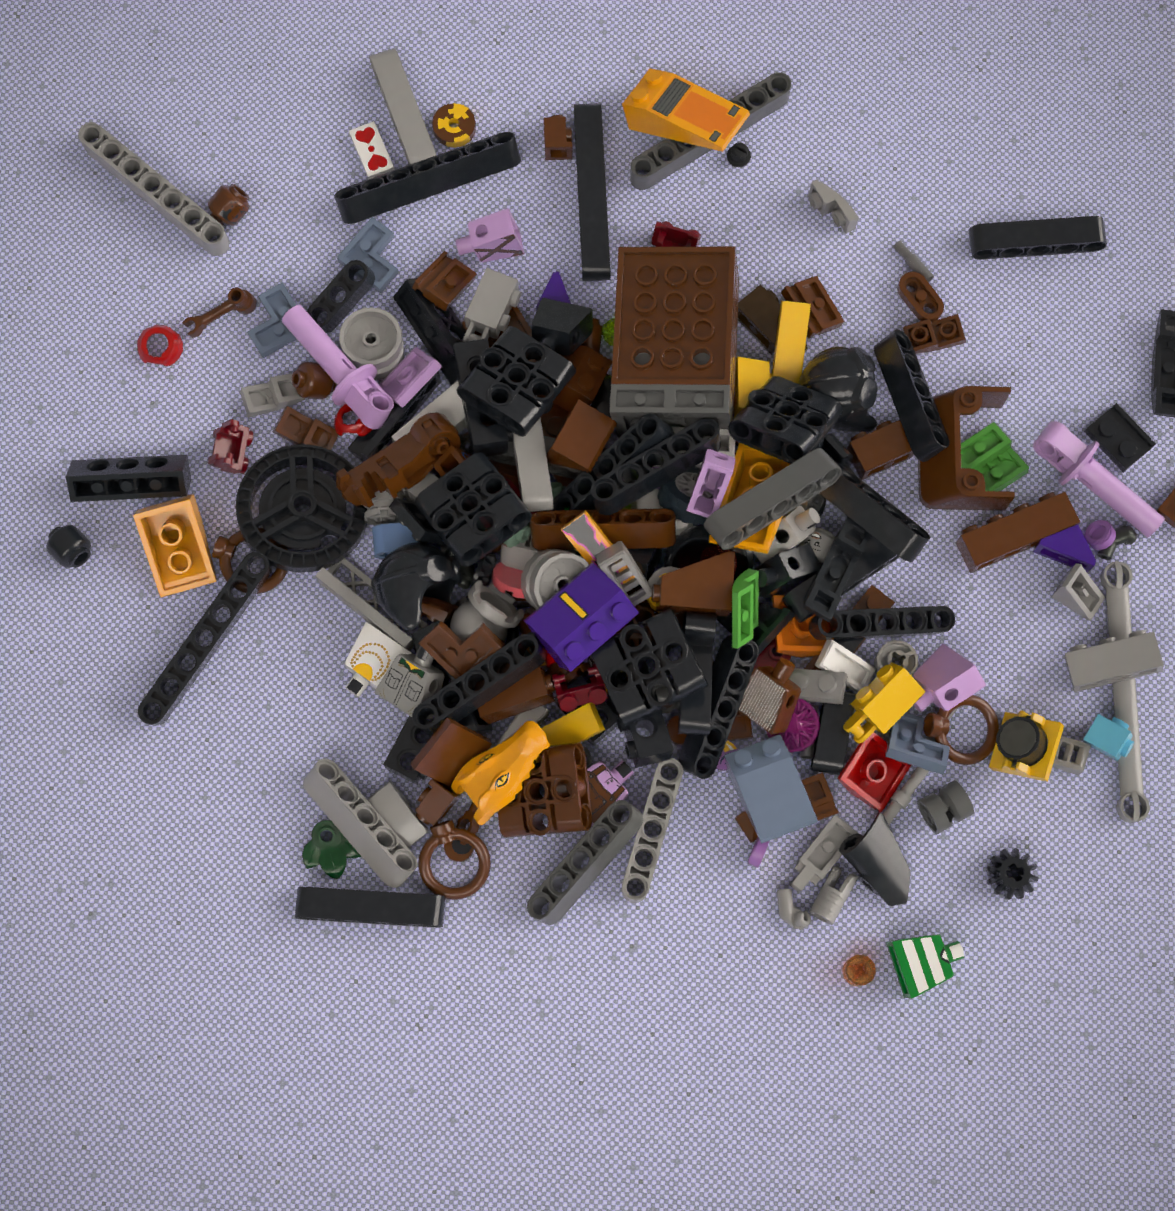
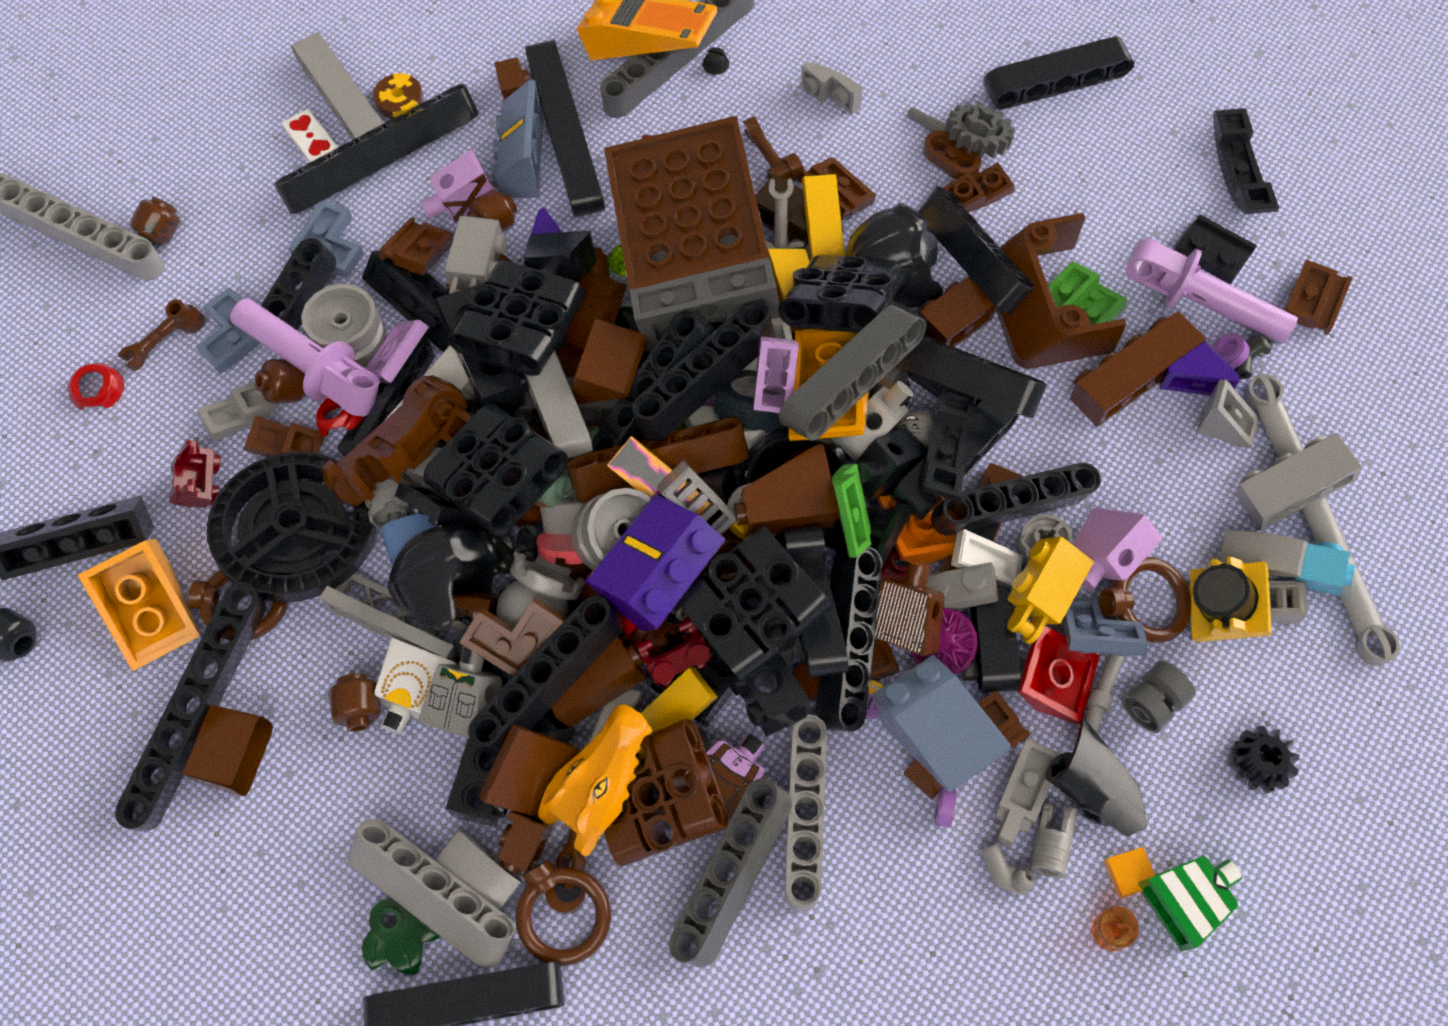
camera: 10 degrees left, 10 degrees down
(227, 679) = (228, 750): none -> reddish brown piece
(328, 664) = (354, 702): none -> reddish brown head
(514, 262) = (494, 206): none -> reddish brown head
(549, 202) = (519, 144): none -> sand blue slope
(750, 350) = (781, 218): none -> light grey bar
(770, 275) = (786, 167): none -> reddish brown brick
(883, 930) = (1128, 870): none -> light orange tile
(950, 279) = (979, 129): none -> dark grey gear
(1074, 716) = (1281, 553): none -> light grey slope

